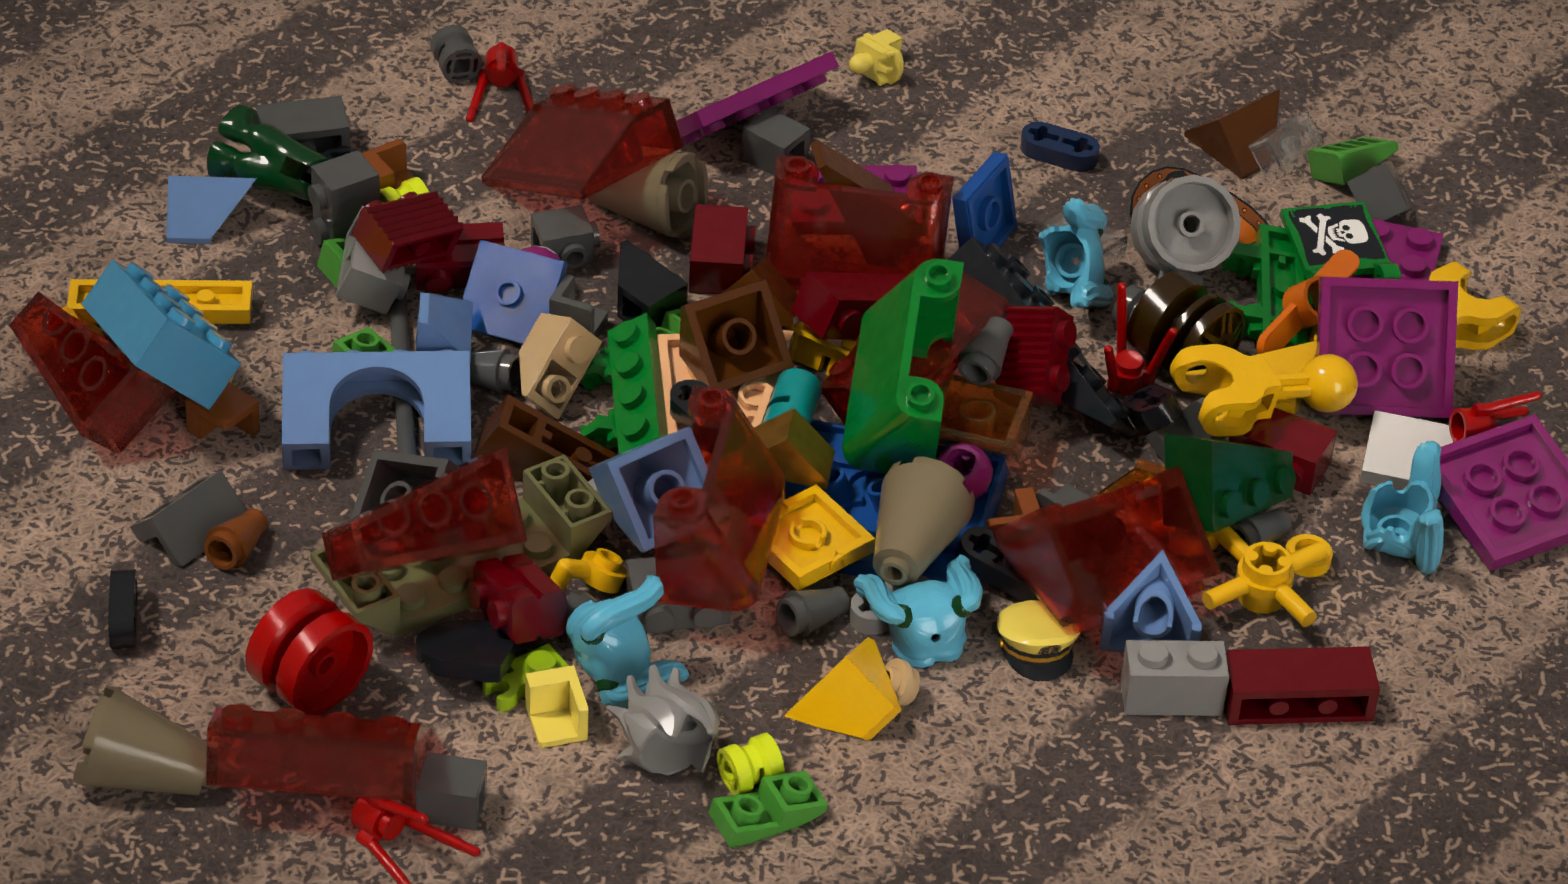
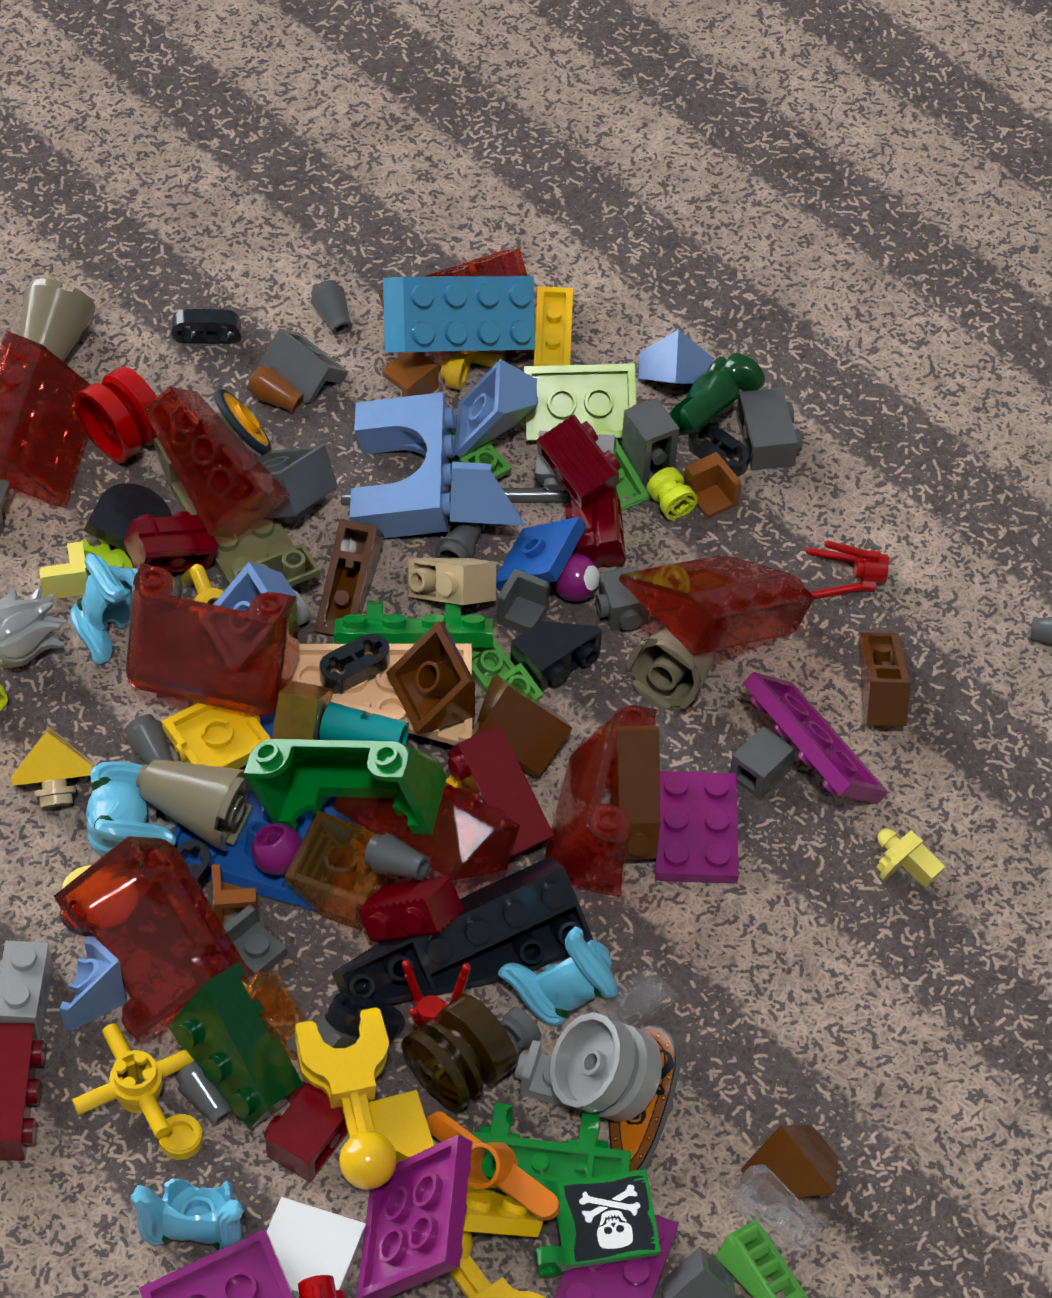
camera: 95 degrees right, 10 degrees up
(88, 493) = (331, 304): none -> dark grey cone
(272, 266) = (588, 391): none -> plate
(296, 551) = (242, 421): none -> wheel
(307, 313) = (494, 406): none -> medium blue slope
(456, 53) = (886, 533): dark grey wheel -> none
(658, 59) = (884, 680): none -> reddish brown slope
(720, 248) = (596, 699): dark red brick -> none
(986, 203) = (638, 905): blue tile -> none
(1059, 146) = (769, 1001): dark blue beam -> none

